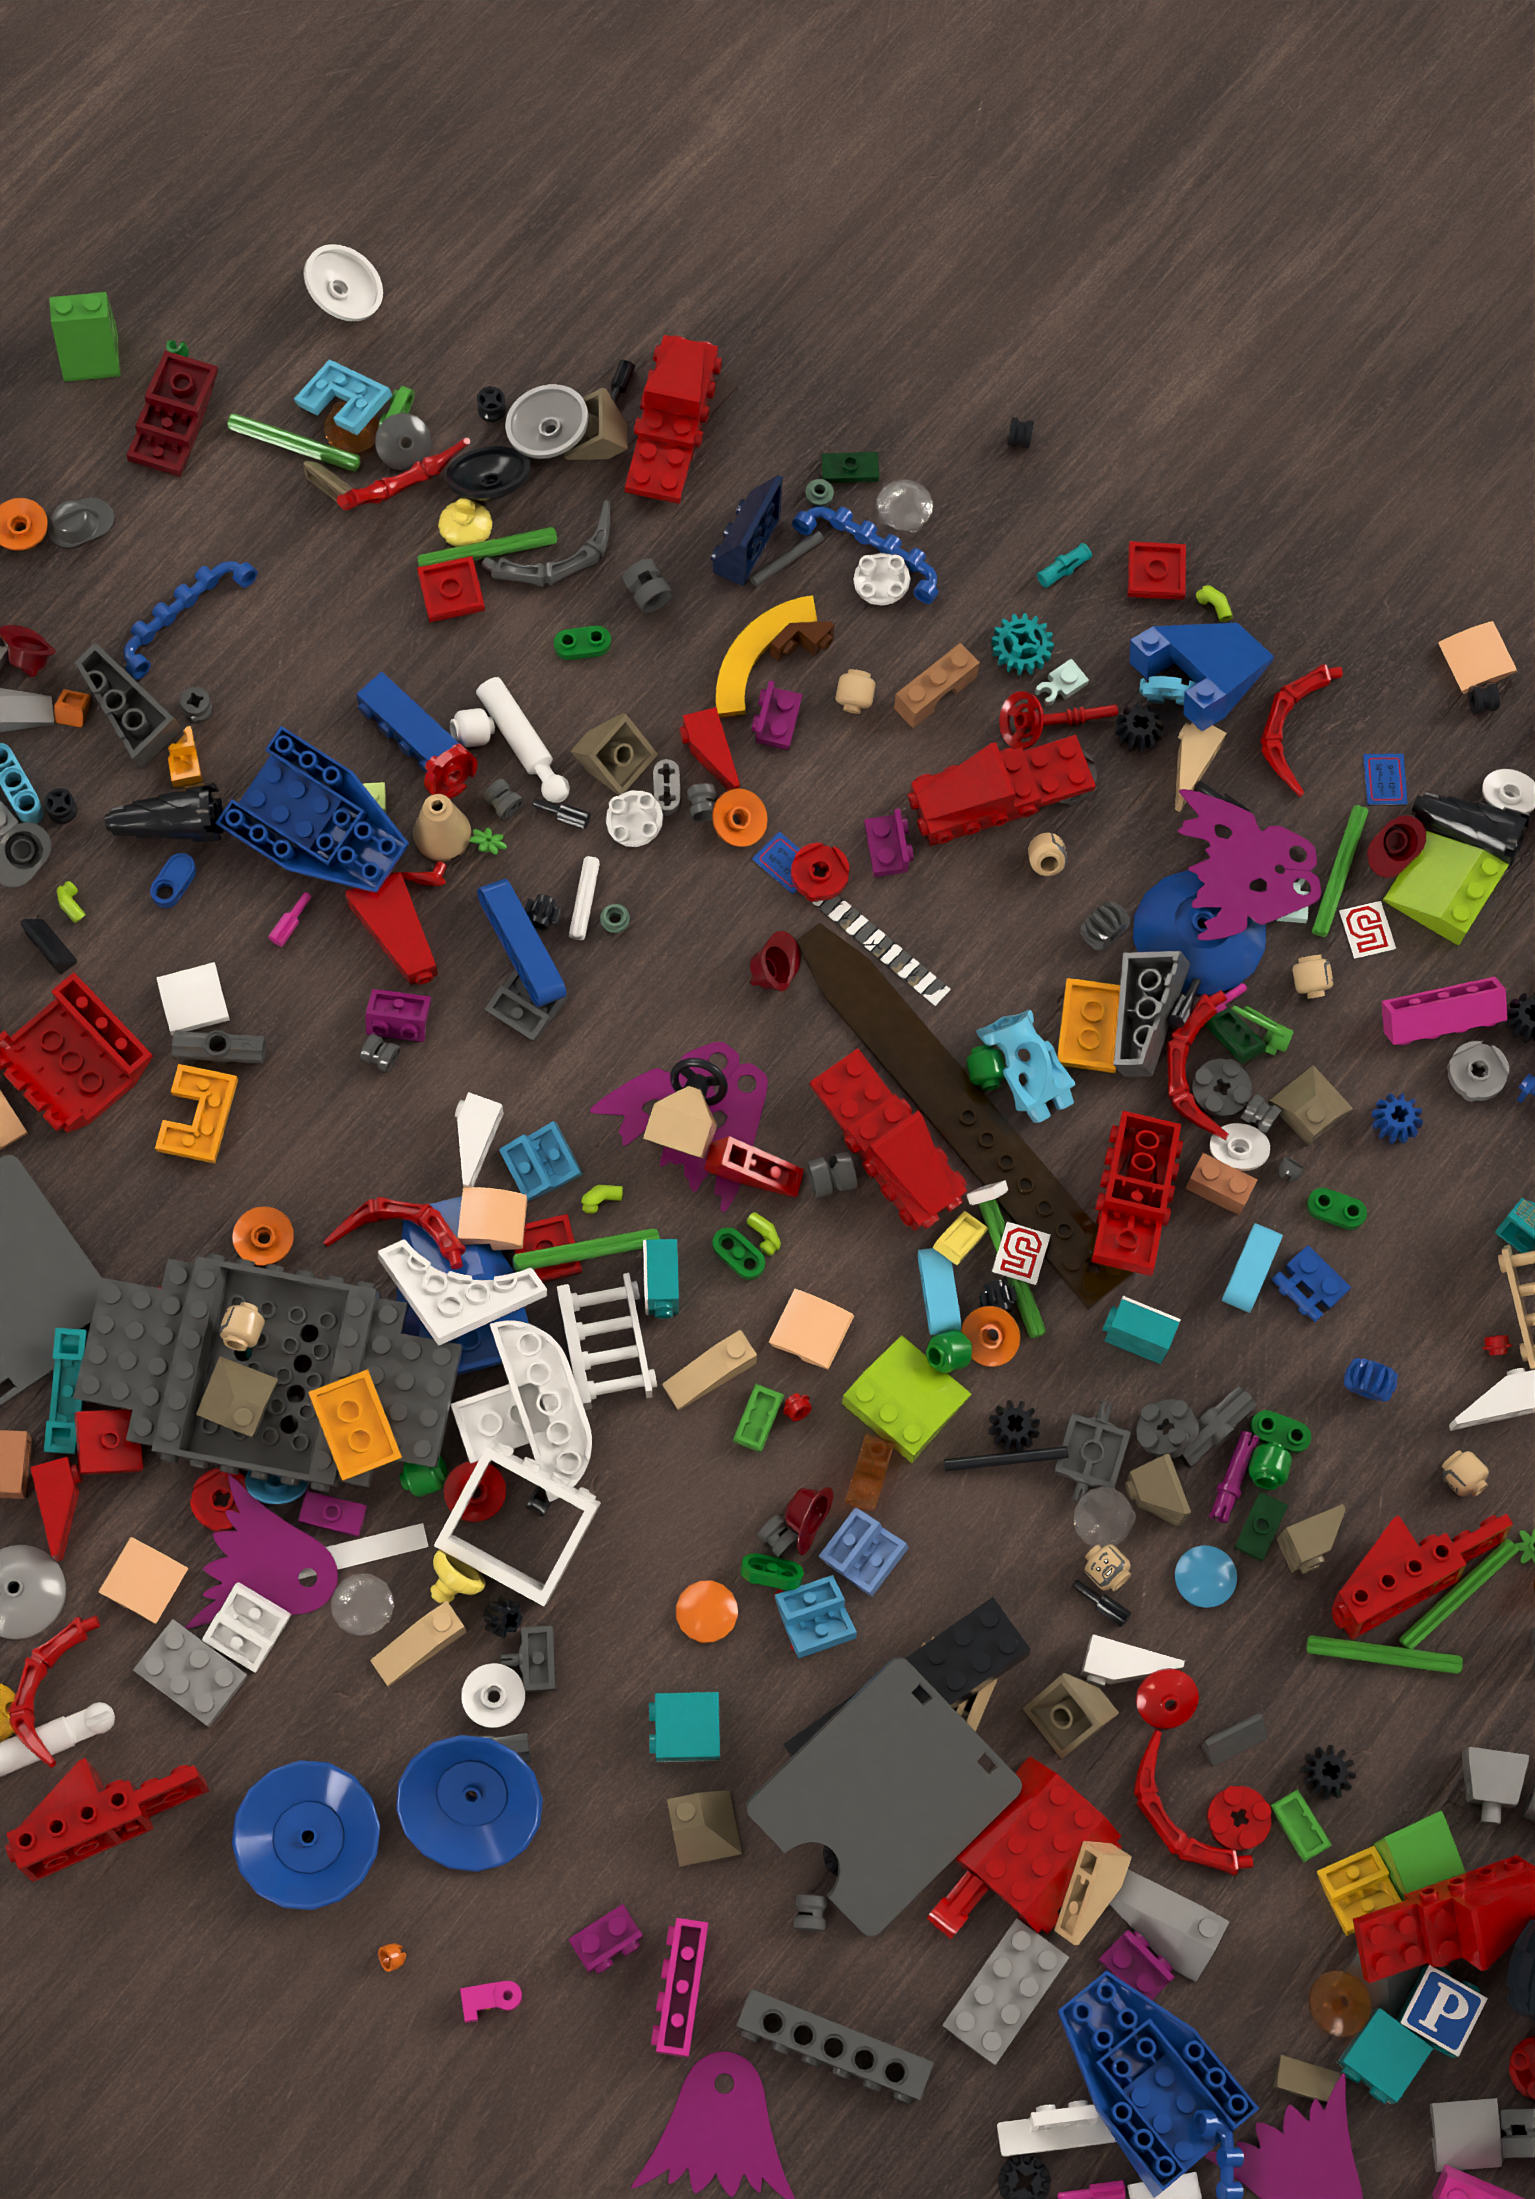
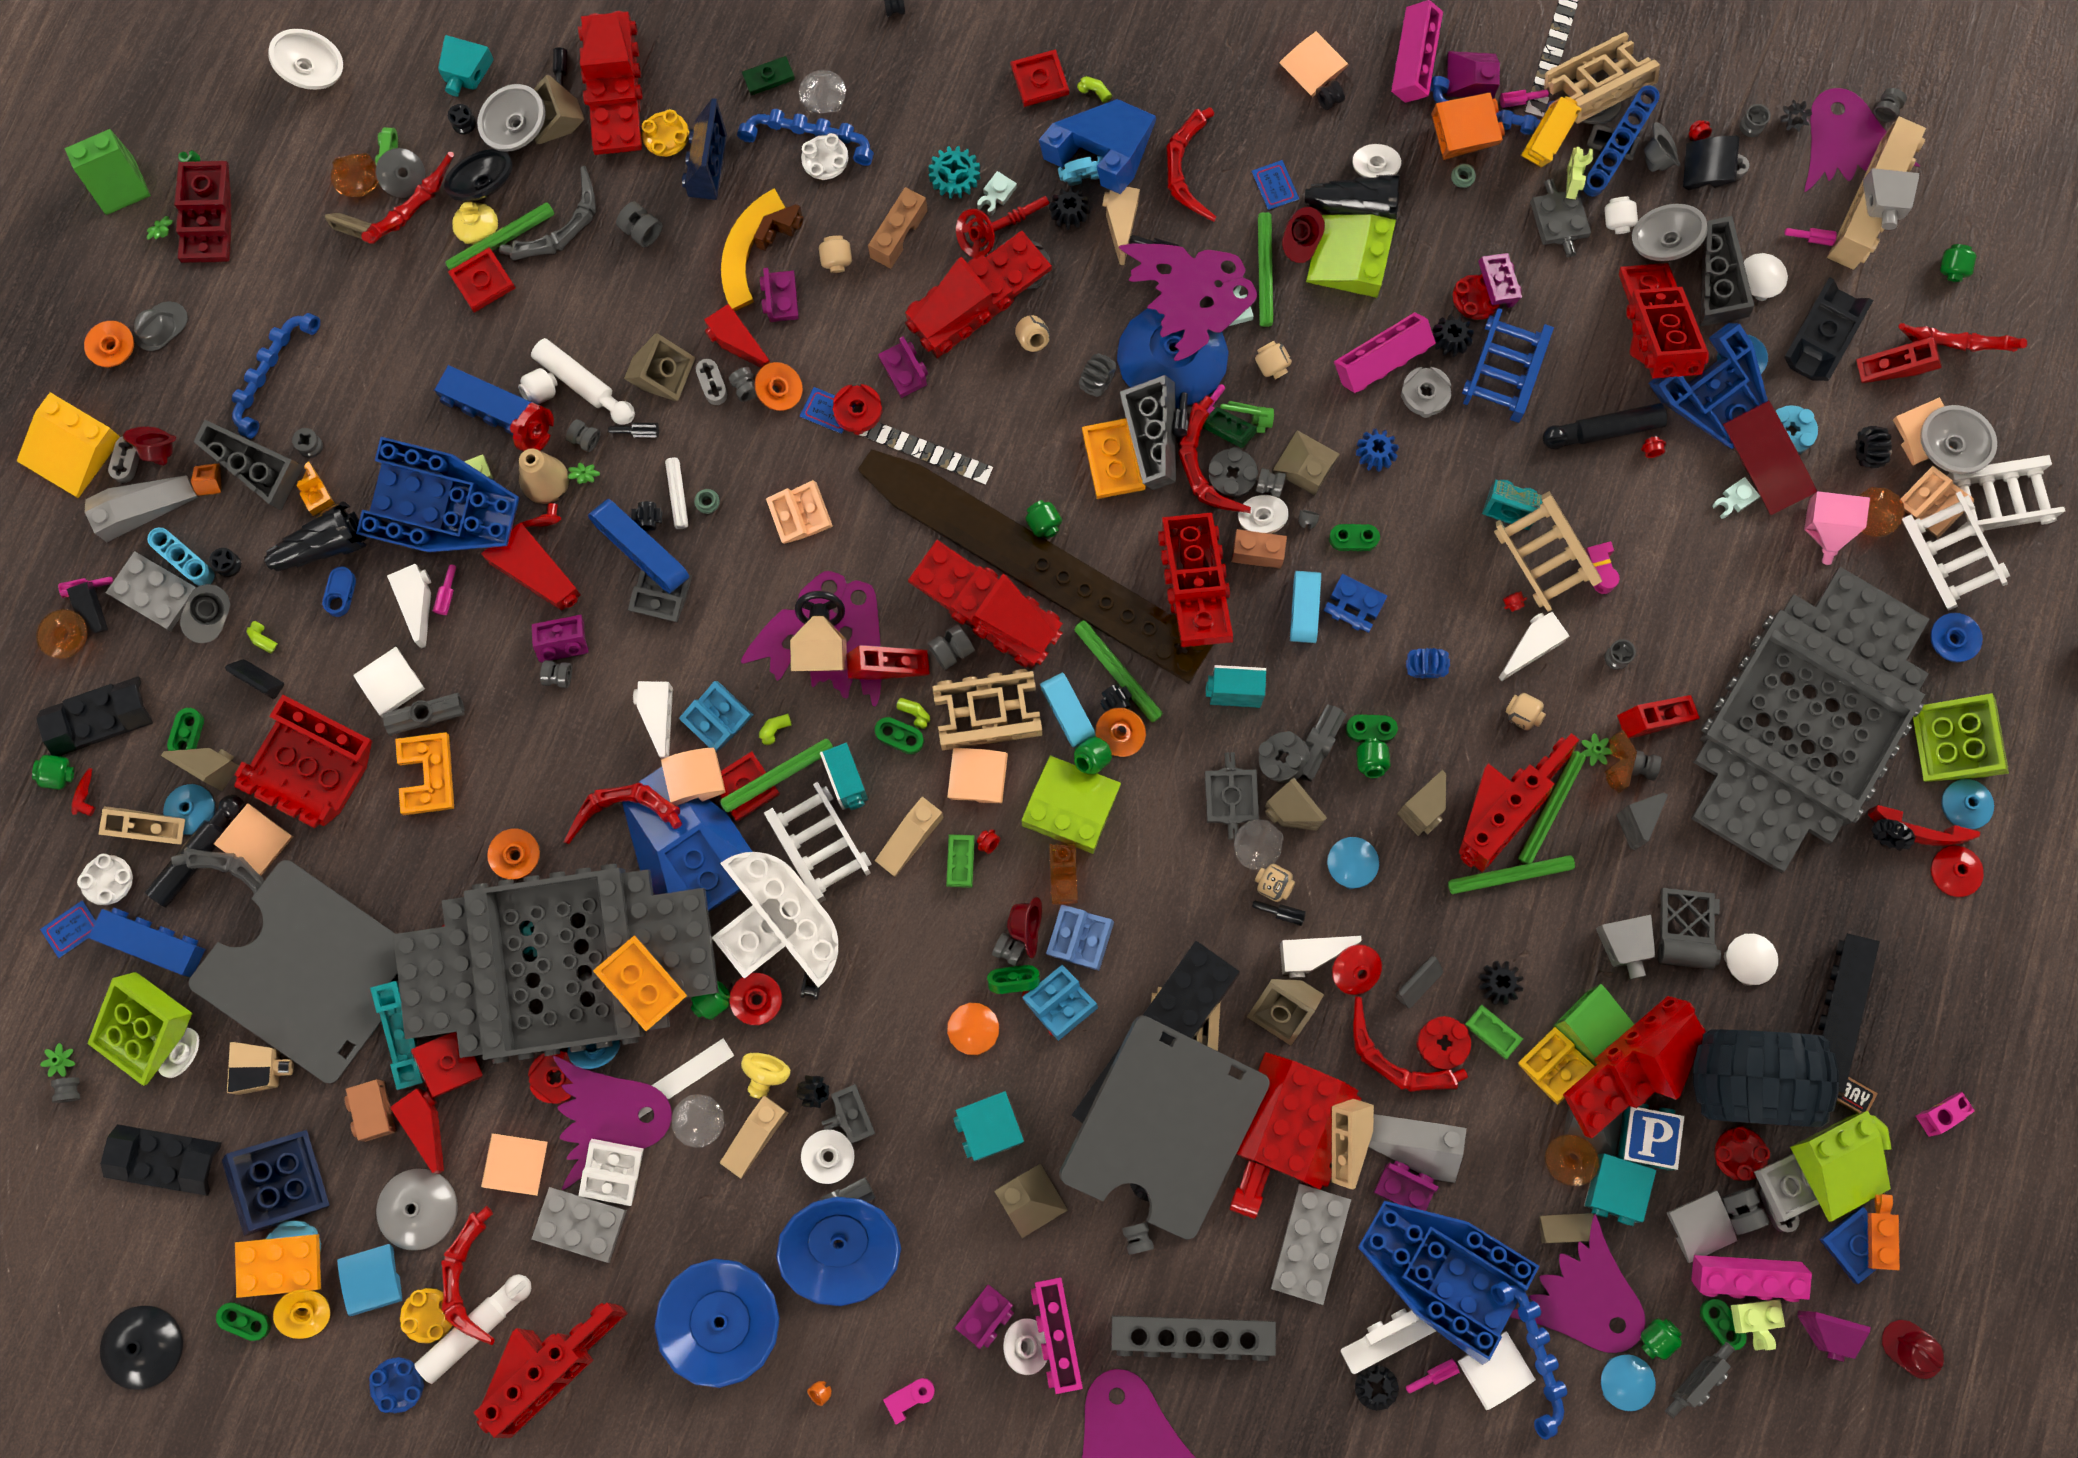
camera: 15 degrees left, 5 degrees up
(118, 417) = (160, 228): none -> bright green plant
(237, 1397) = (537, 993): dark tan slope -> none
(241, 1326) = (520, 935): tan head -> none
(253, 915) = (414, 598): none -> white slope
(293, 442) = (304, 202): bright green axle -> none
(332, 1514) = (648, 1057): magenta plate -> none
(362, 395) = (352, 144): medium azure plate -> none
(453, 1301) = (684, 855): white plate -> none
(490, 1565) = (791, 1054): white window -> none
(514, 344) = (463, 64): none -> teal torso
(582, 644) = (603, 289): green plate -> none
(634, 818) = (694, 415): white dish -> none
(646, 1973) = (1030, 1358): none -> white dish
(711, 494) = (665, 133): none -> yellow dish
(713, 966) = (799, 512): none -> light nougat slope
(776, 962) = (847, 493): dark red piece -> none
(786, 558) = (743, 165): dark grey bar -> none
(819, 500) = (751, 110): sand green plate -> none
(842, 1282) = (989, 729): none -> tan fence
(960, 1238) = (1070, 662): light yellow tile -> none
(987, 1192) = (1079, 619): white tile -> none
(1001, 1423) = (1173, 797): black gear -> none
(1006, 1458) = (1166, 824): black bar -> none
(1021, 1253) = (1121, 658): white sticker -> none
(1043, 1071) = (1089, 507): medium azure hips -> none
(1064, 565) = (965, 98): teal pin -> none
(1229, 1490) = (1348, 777): magenta pin -> none
(1260, 1526) = (1382, 808): dark green plate -> none
(1367, 929) = (1302, 308): white sticker -> none

